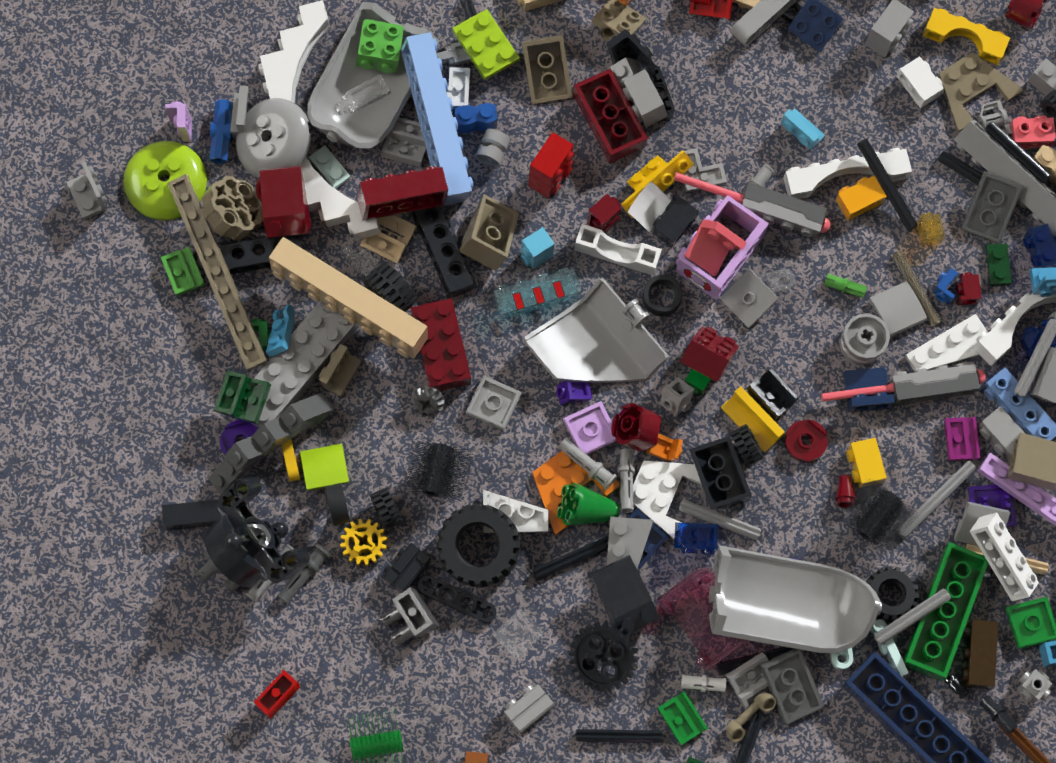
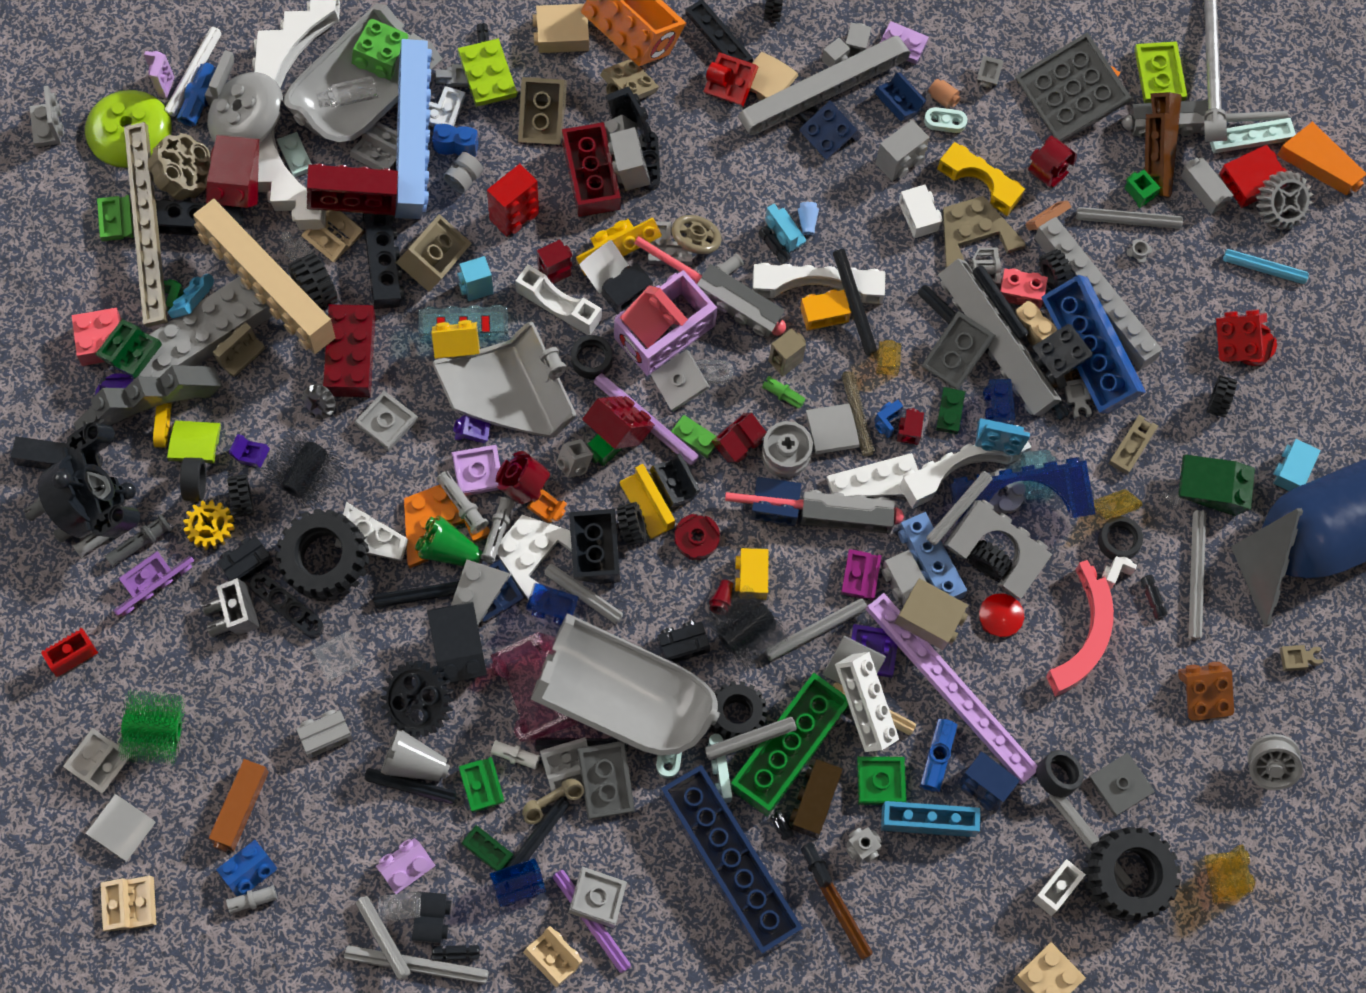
camera: 15 degrees right, 5 degrees down
(202, 388) = (91, 332): none -> coral brick
(208, 109) = (200, 57): none -> white axle
(324, 606) = (146, 577): none -> medium lavender bracket
(378, 464) = (248, 452): none -> dark purple bracket
(537, 312) = (455, 339): none -> yellow brick
(615, 711) = (413, 759): none -> light grey cone
(723, 154) = (696, 234): none -> dark tan plate
(744, 350) = (658, 430): none -> lavender axle
(777, 346) = (694, 436): none -> bright green plate
(796, 146) = (774, 244): none -> black axle
(818, 338) = (739, 437): none -> dark red brick
(819, 112) = (808, 216): none -> light blue cone
(823, 542) = (683, 642): none -> black brick
(840, 247) = (787, 352): none -> dark tan brick
(1036, 57) = (1048, 214): none -> nougat tile

